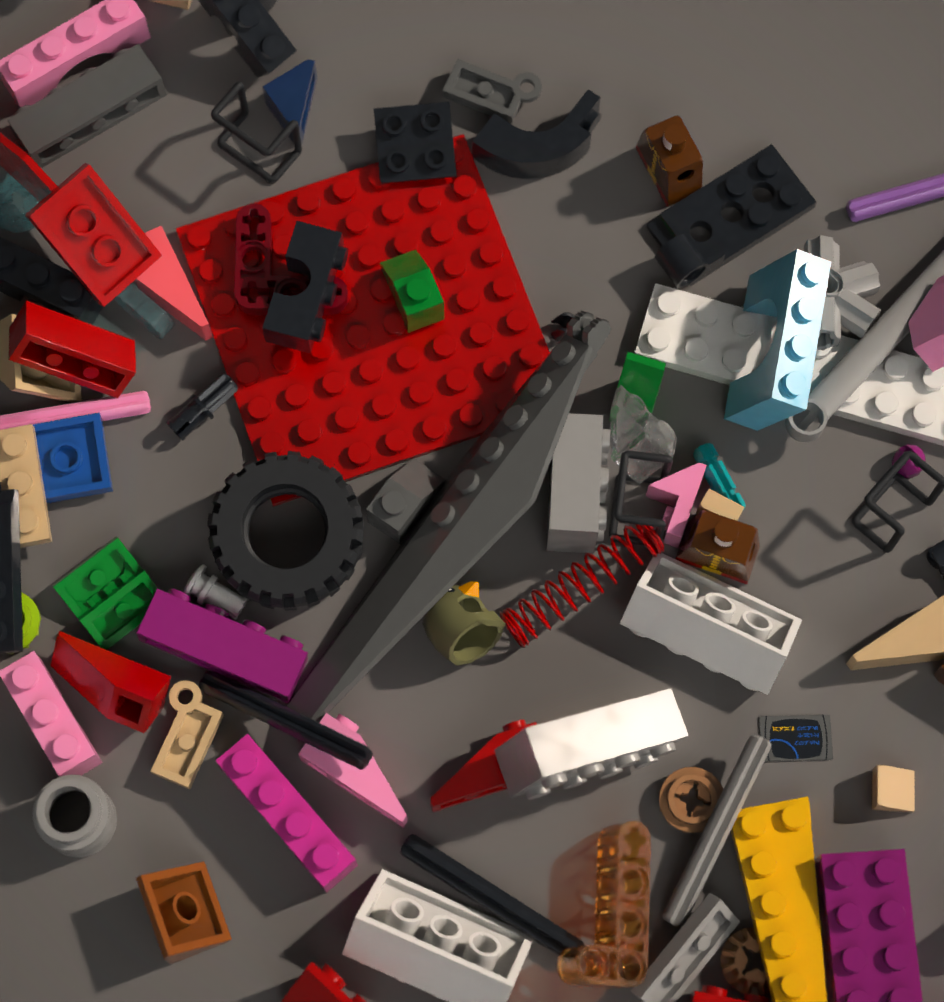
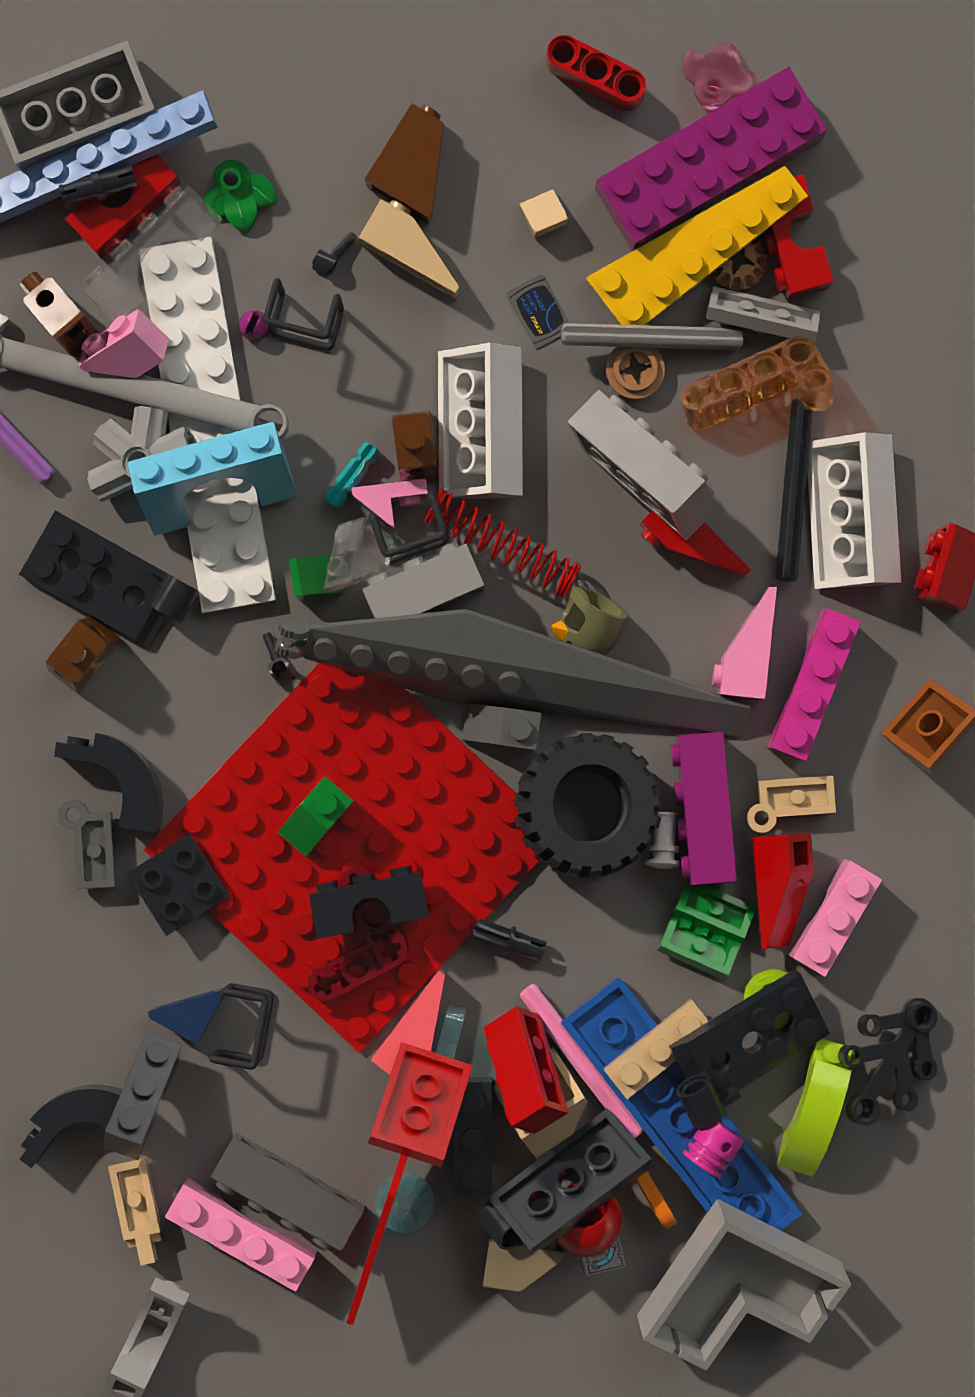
camera: 120 degrees left, 15 degrees up
(93, 835) = (878, 851): light grey piece -> none
(286, 720) = (743, 722): black axle -> none
(720, 505) = (383, 459): tan slope -> none

